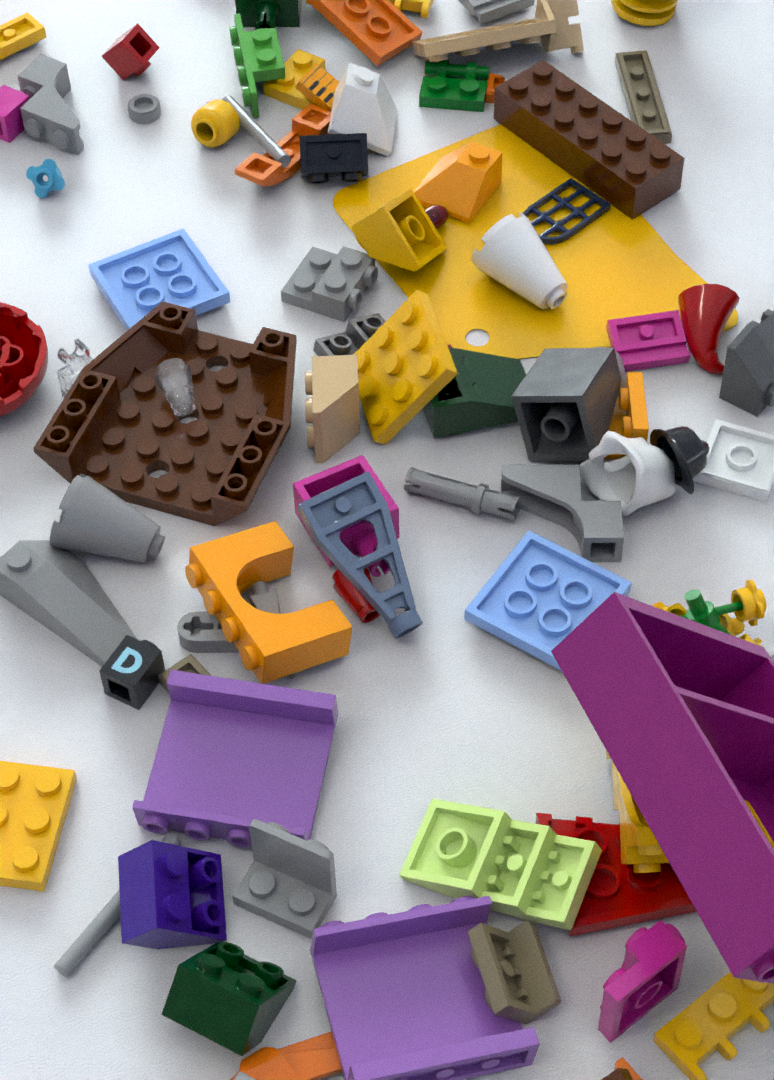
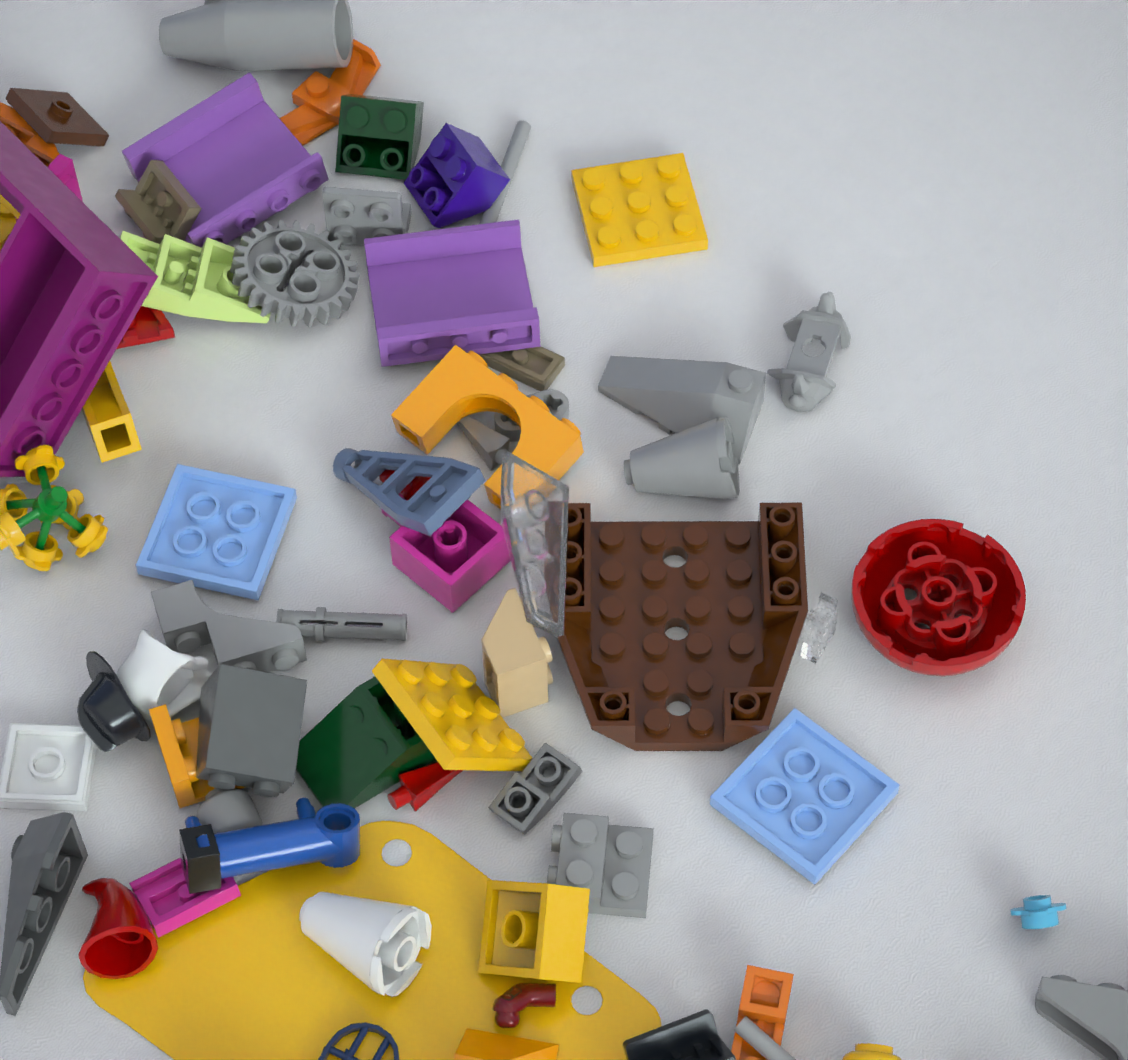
camera: 160 degrees right, 5 degrees up
(132, 671) = (586, 346): black brick -> none
(176, 384) = (696, 629): clear cone -> none
(275, 461) = (536, 538): none -> clear wedge
(390, 833) = (314, 290): none -> light grey gear
(578, 329) = (321, 837): none -> blue piece

